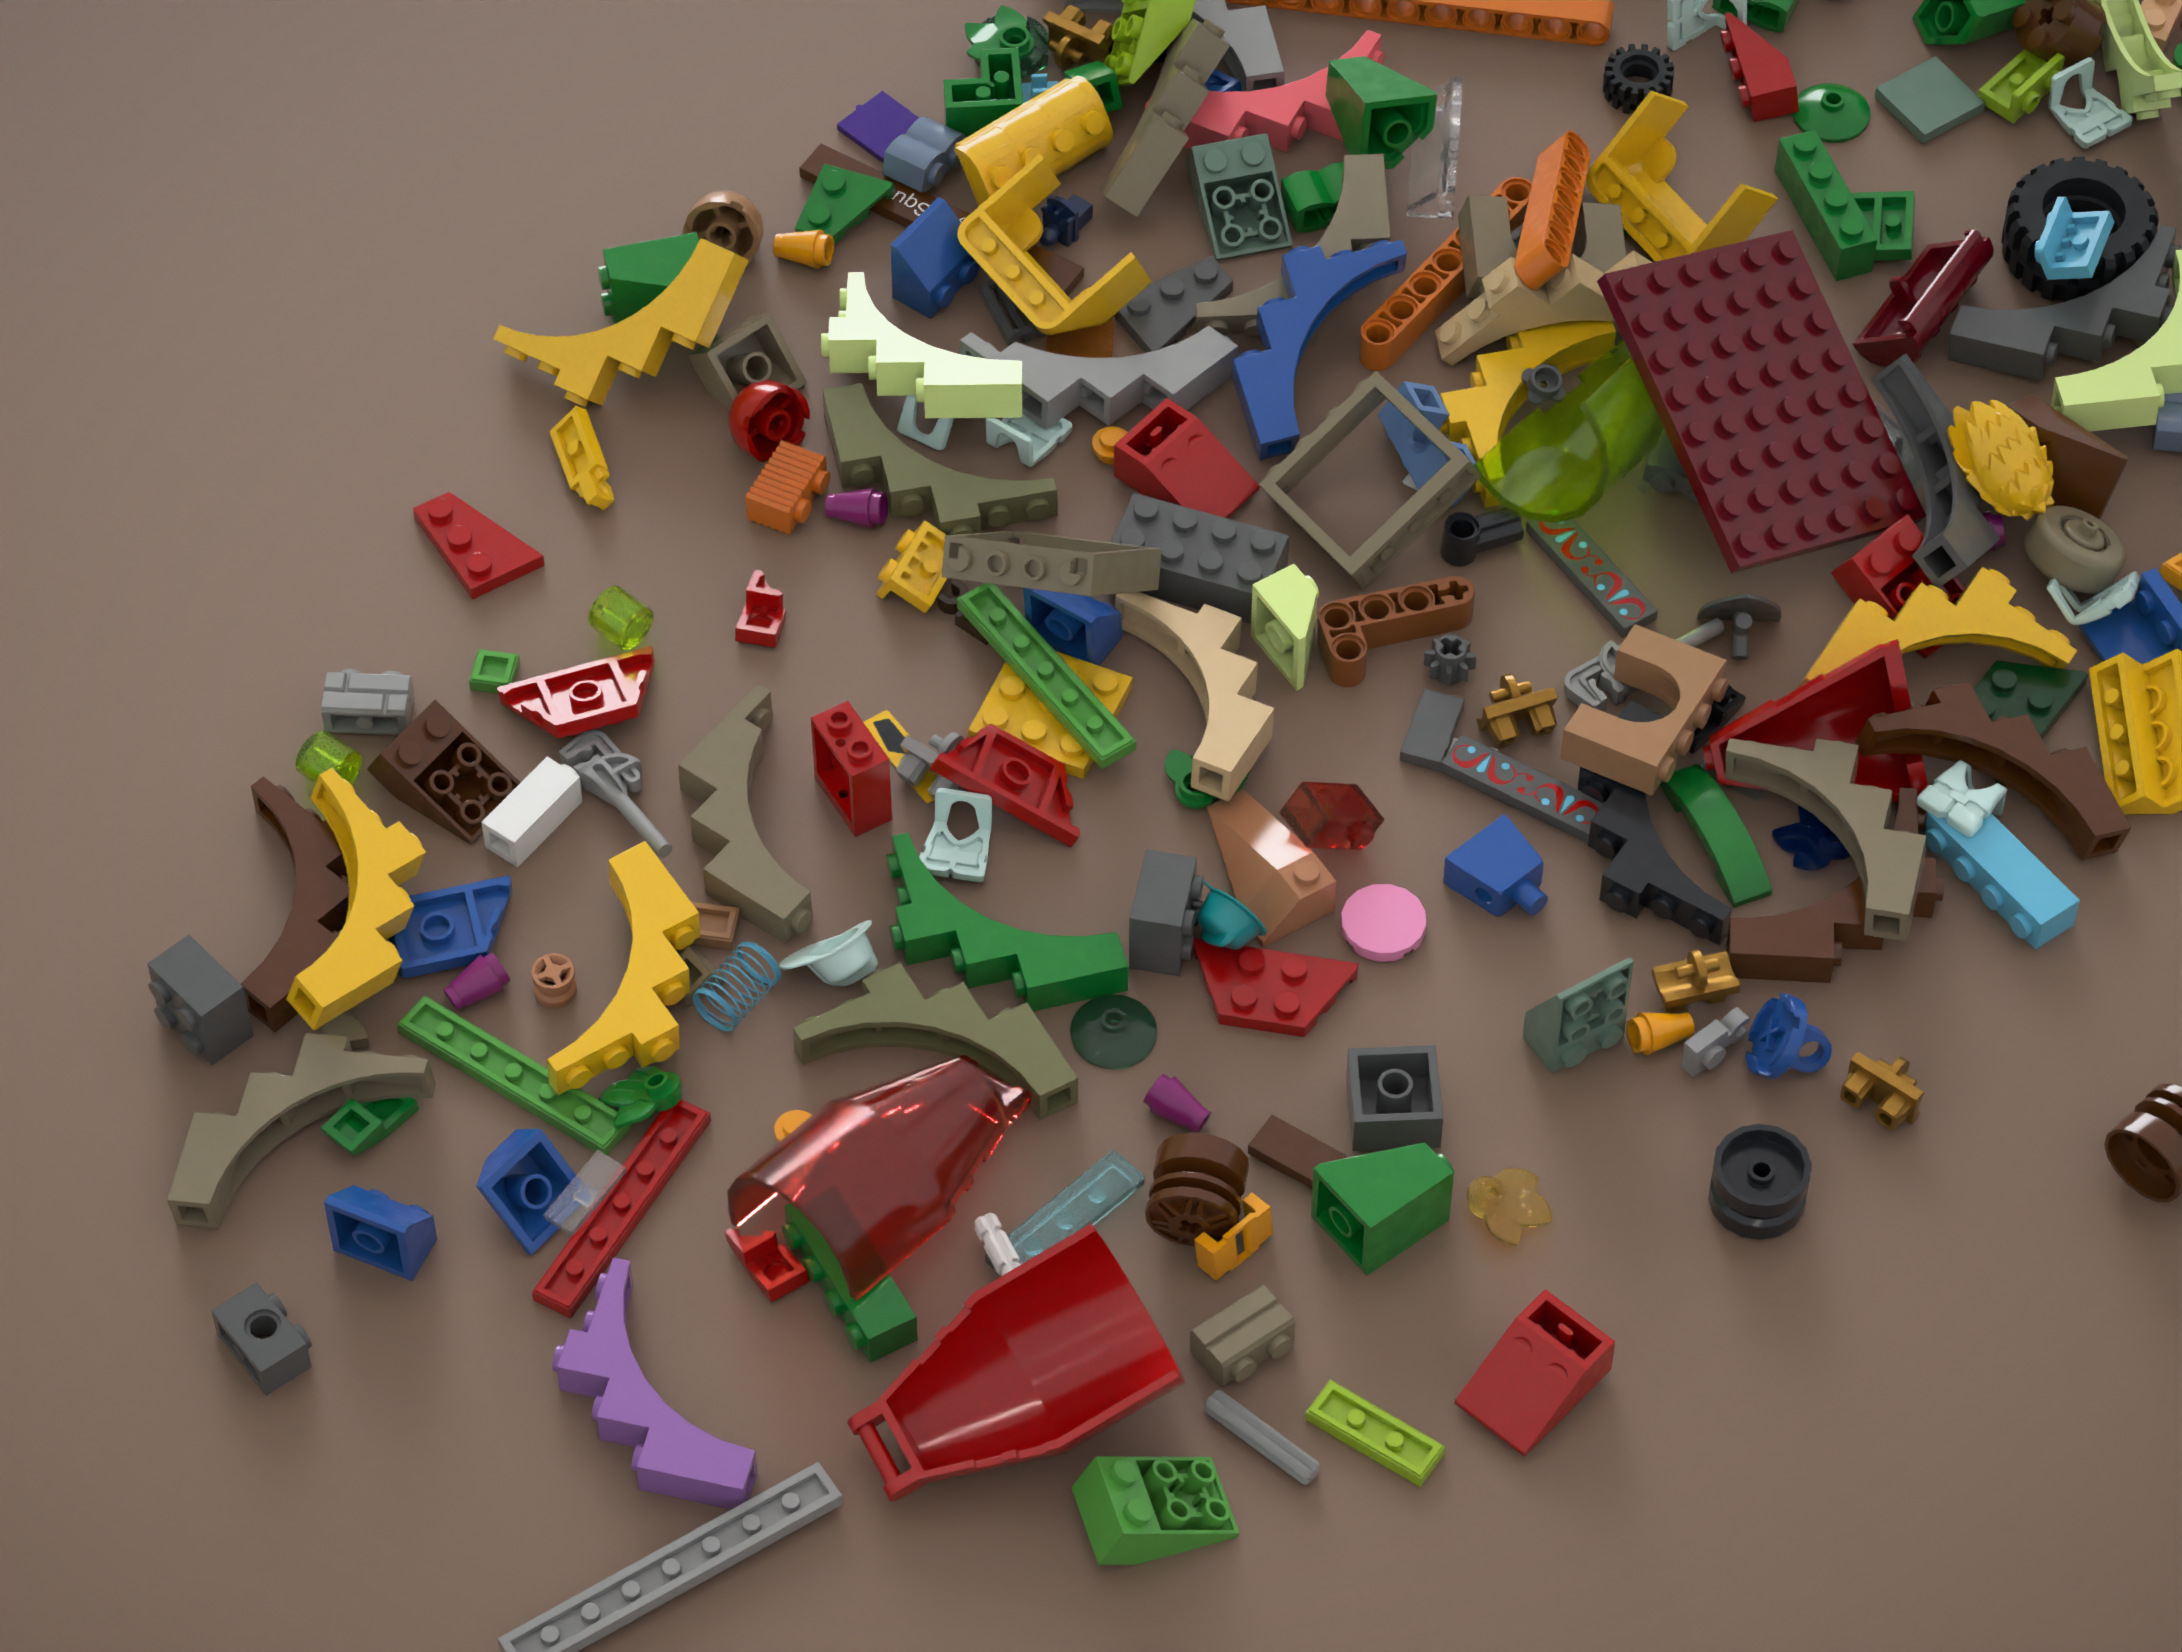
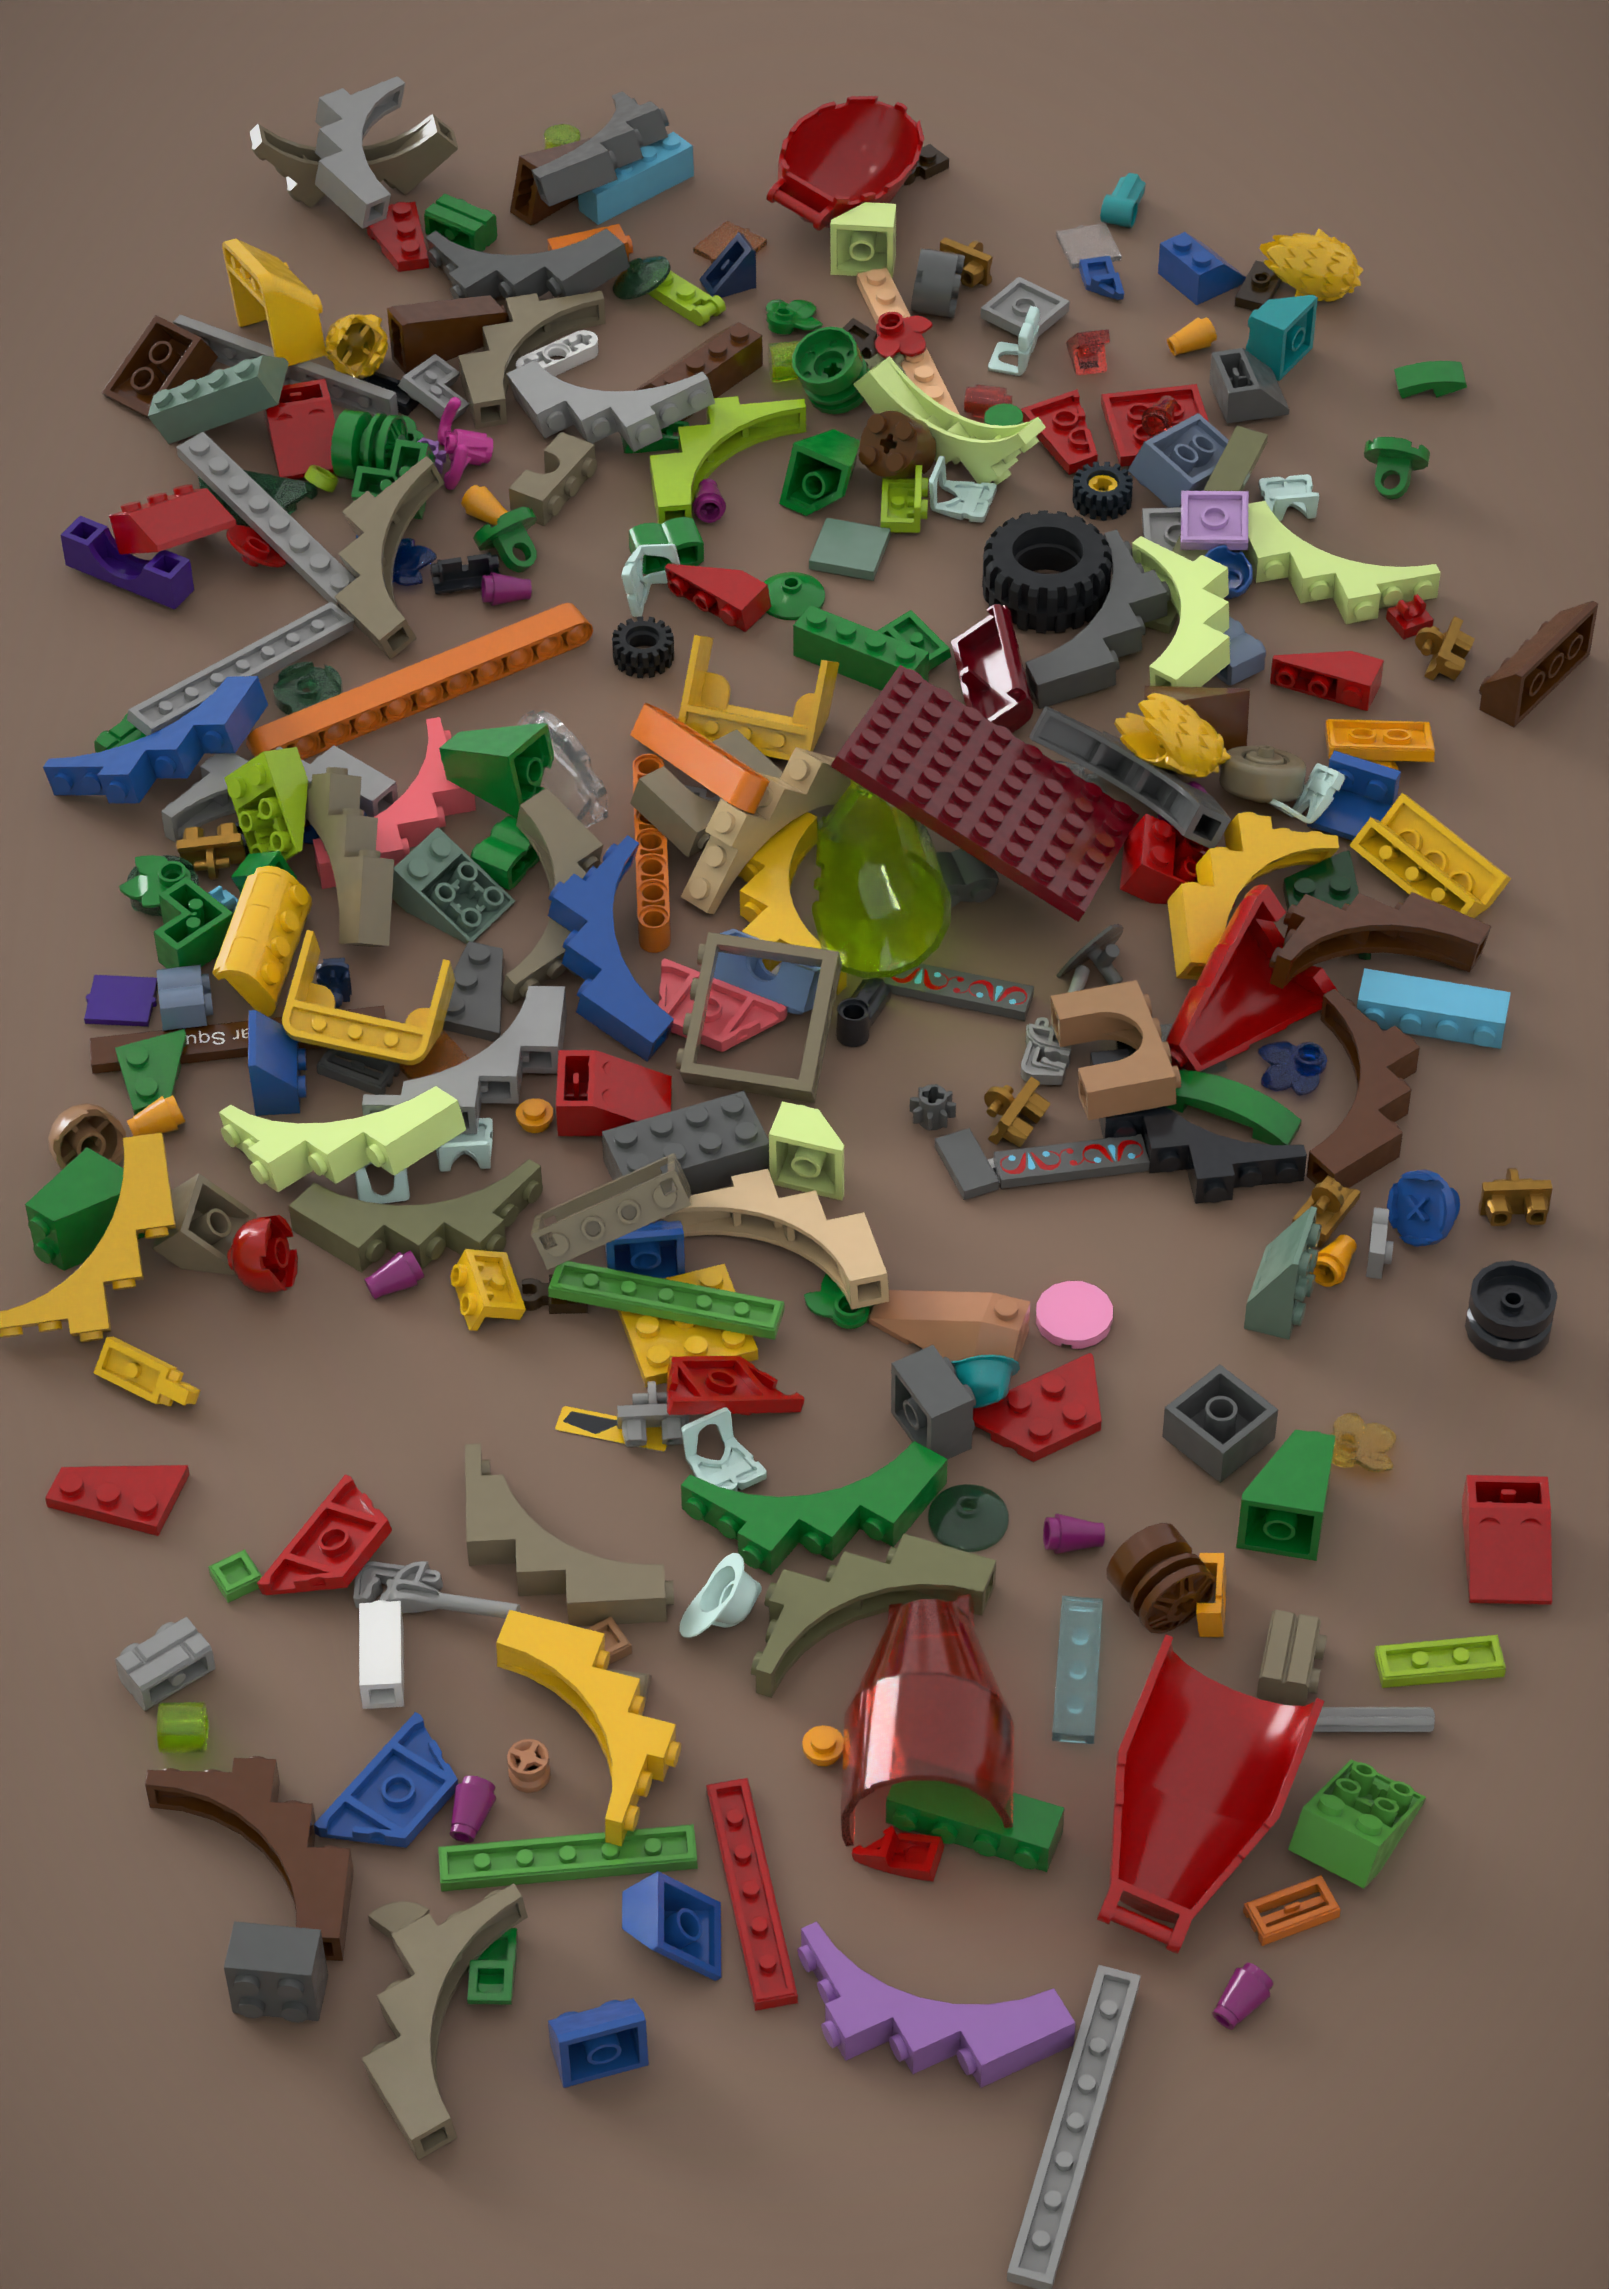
camera: 40 degrees left, 5 degrees down
(268, 1360) = (604, 2208): dark grey brick -> none
(378, 908) = (345, 1800): yellow arch -> none
(444, 773) = (281, 1673): reddish brown slope -> none
(585, 1193) = (722, 1900): clear piece -> none
(620, 617) = (300, 1469): clear neon green piece -> none
(642, 1094) = (685, 1799): green plate -> none
(719, 999) = (672, 1661): medium azure piece -> none
(762, 614) = (400, 1398): red slope -> none
(787, 487) = (328, 1295): orange brick -> none
(851, 763) = (584, 1471): red window -> none
(908, 1573) = (1242, 1995): none -> magenta cone
(996, 1243) = (1068, 1721): white axle -> none
(1025, 1546) = (1295, 1916): none -> orange tile
(1291, 1150) = (1188, 1509): reddish brown tile -> none
(1332, 816) = (977, 1261): clear red brick -> none
(1364, 460) = (731, 1011): none -> coral wing
(1387, 618) = (865, 1103): dark orange beam -> none
(1497, 870) = (1118, 1225): blue torso -> none
(1543, 374) = (807, 880): dark grey plate -> none
(1857, 814) = (1326, 1027): dark tan arch -> none
(1959, 802) = (1365, 981): light aqua piece -> none
(2072, 241) = (1075, 572): medium azure bracket -> none

